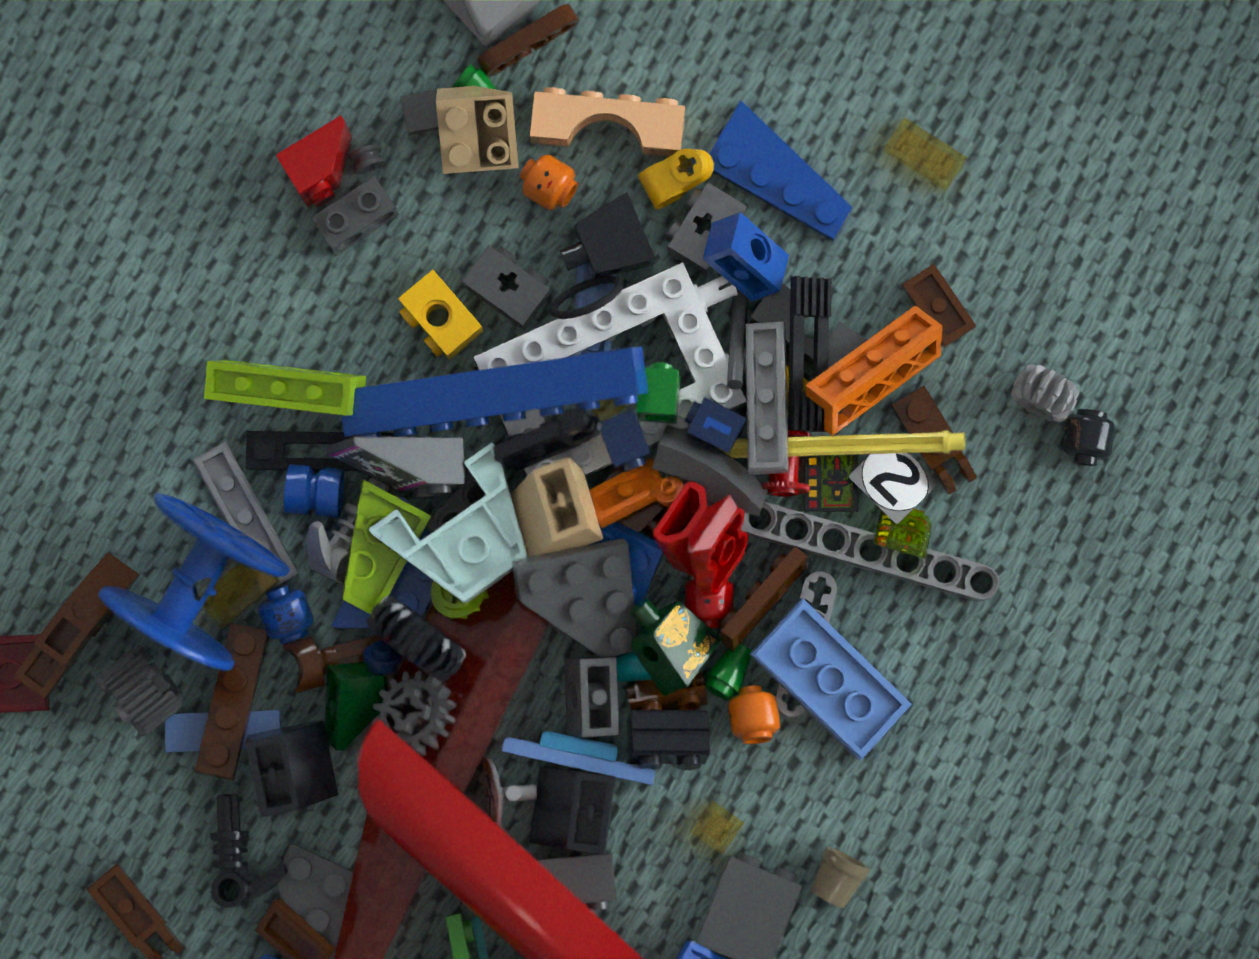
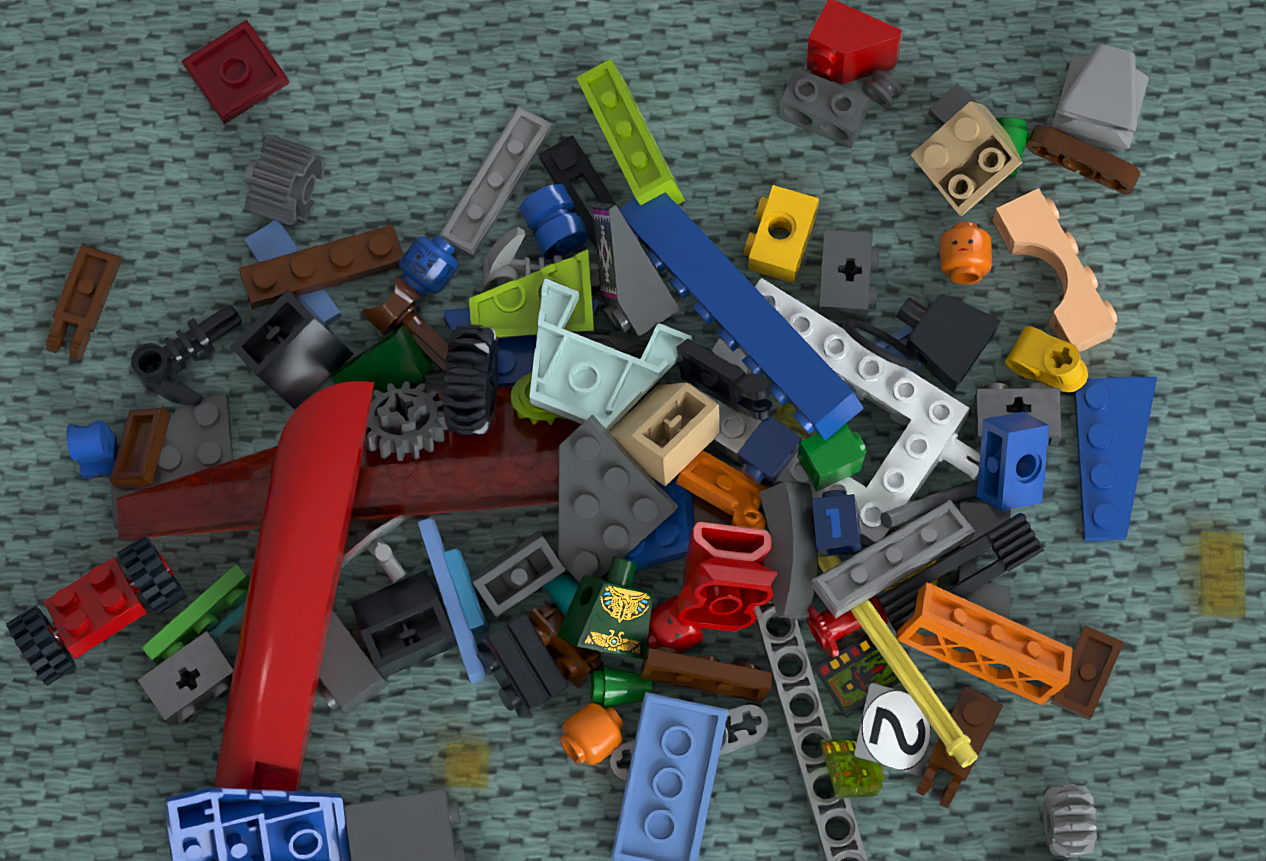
camera: 60 degrees right, 10 degrees down
(73, 626) = (311, 92): reddish brown slope -> none
(173, 617) = (357, 160): blue piece -> none
(237, 592) = (427, 212): clear yellow tile -> none
(381, 658) = (434, 365): dark blue plate -> none

